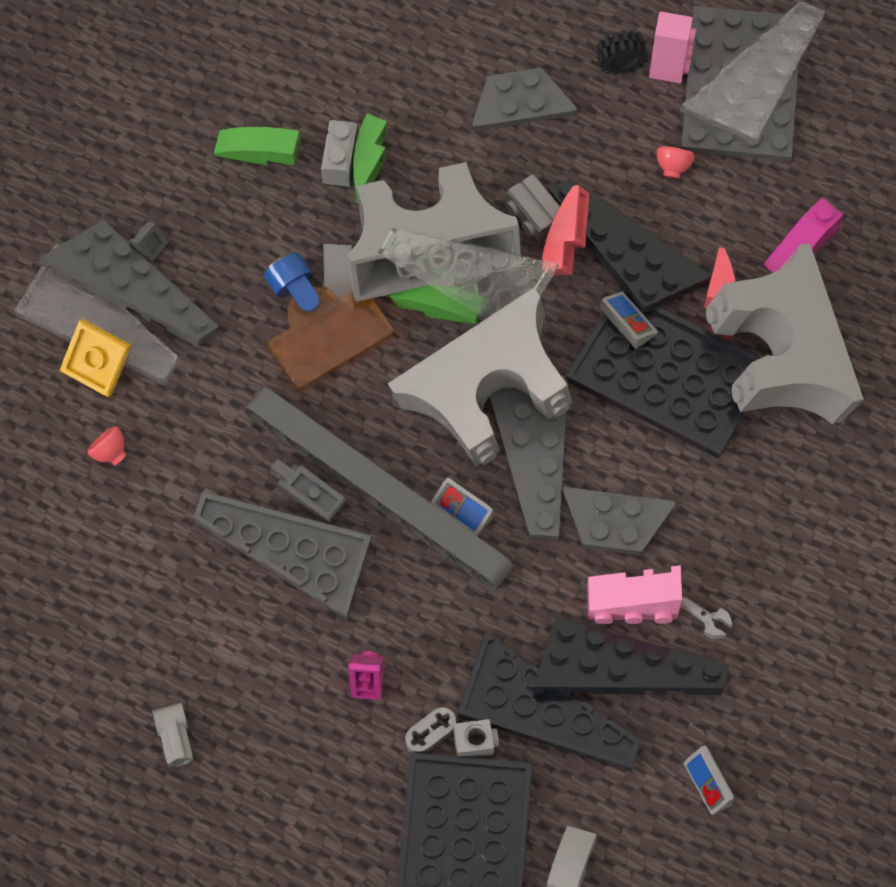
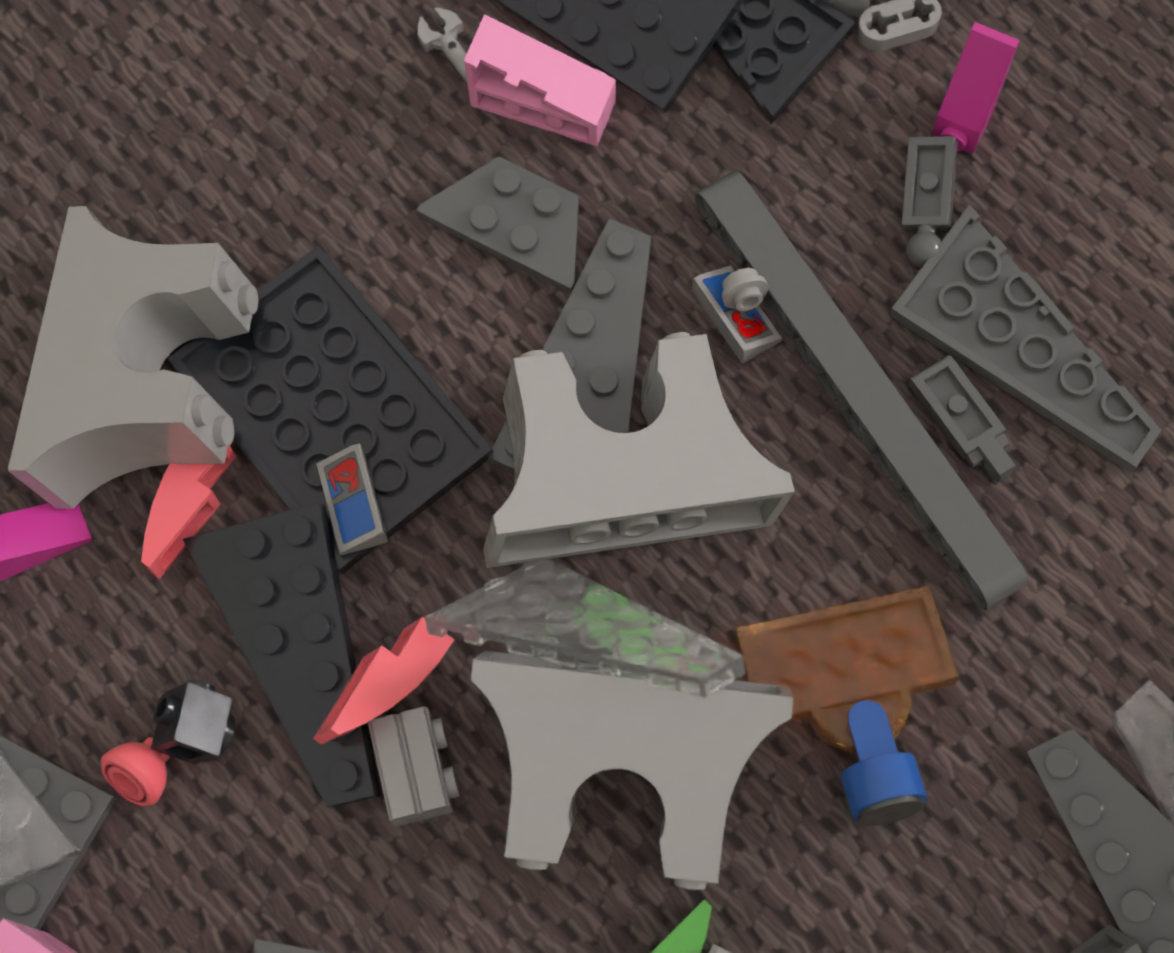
camera: 155 degrees left, 5 degrees up
(336, 269) = (791, 777): light grey slope -> none
(373, 615) = (928, 194): none -> dark grey plate
(460, 507) = (744, 289): none -> light grey plate
(656, 186) = (193, 722): none -> brick

